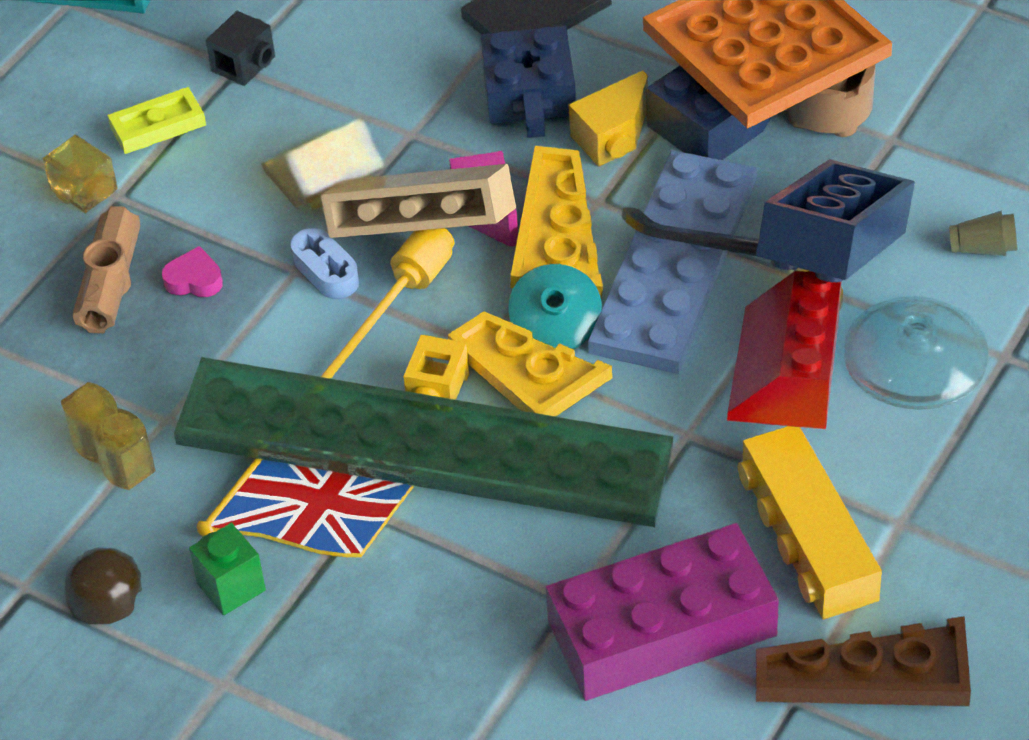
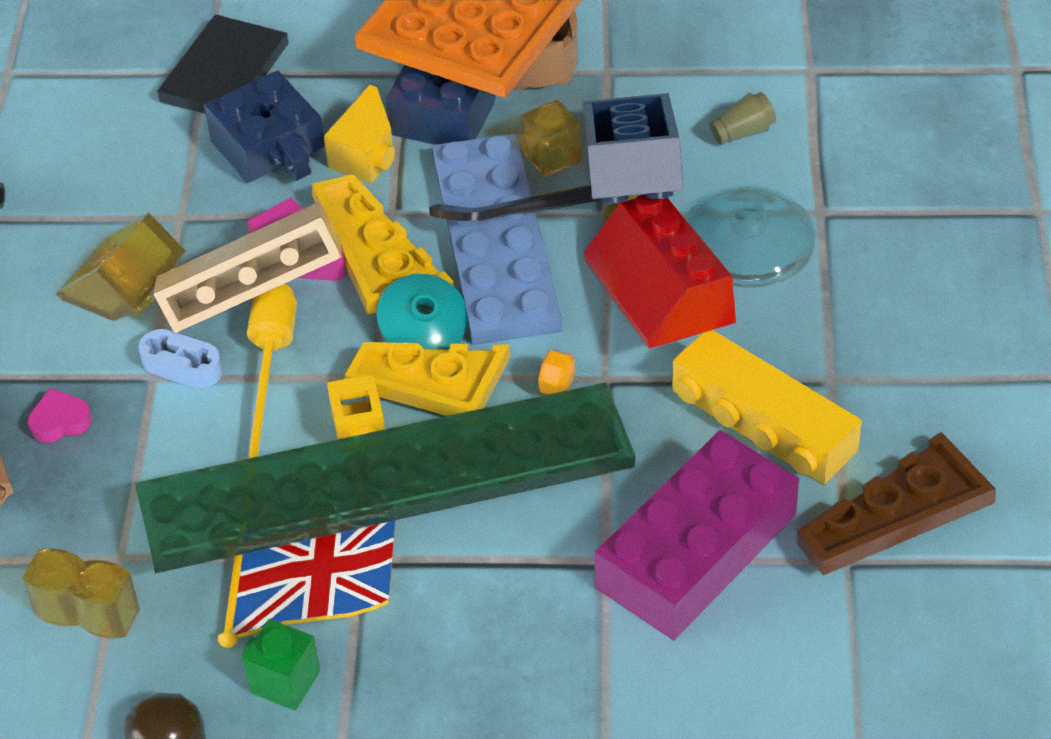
camera: 30 degrees left, 0 degrees up
(638, 409) = (556, 372): none -> light orange tile
(776, 171) = (550, 138): none -> clear yellow brick

